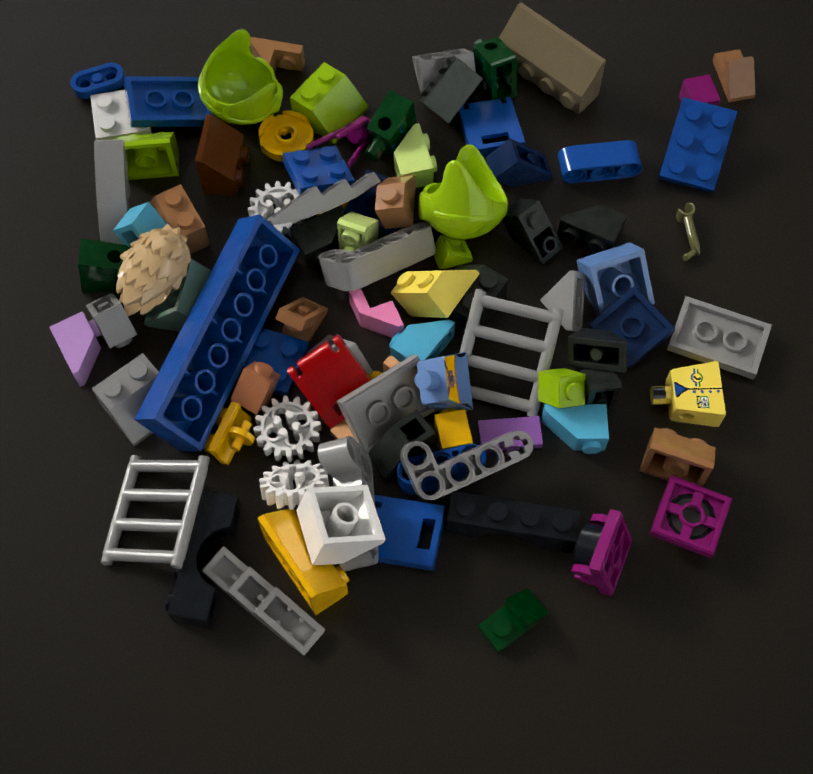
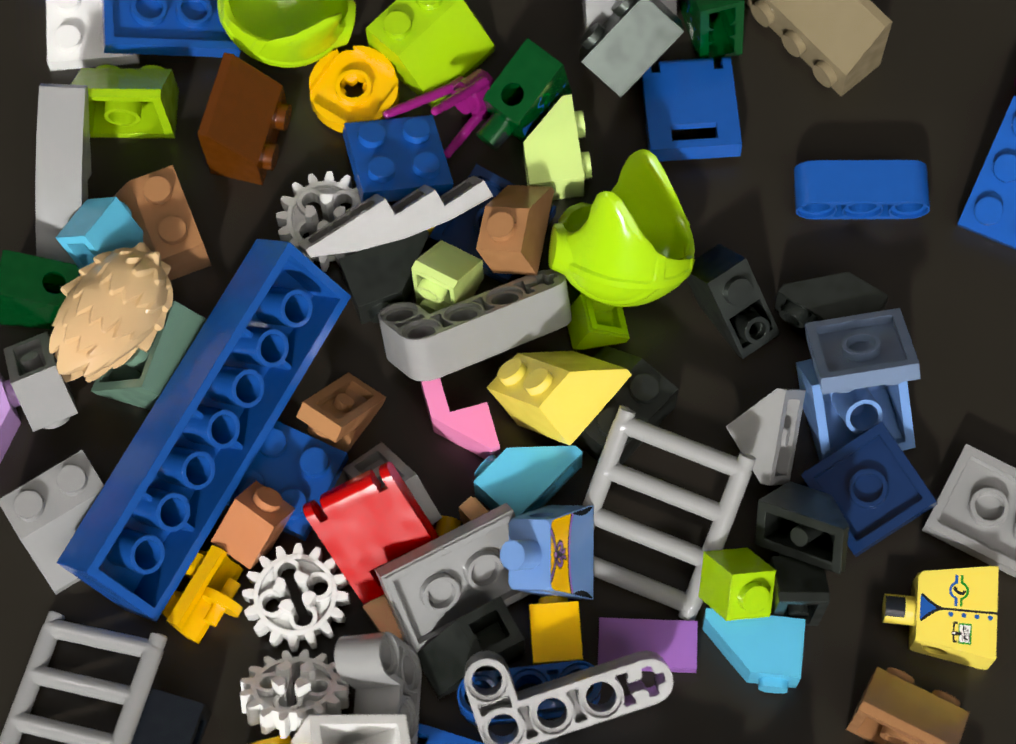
camera: 10 degrees right, 5 degrees up
(518, 164) = (726, 182): dark blue slope -> none
(617, 244) = (862, 351): none -> sand blue plate
(686, 218) = (994, 327): olive piece -> none

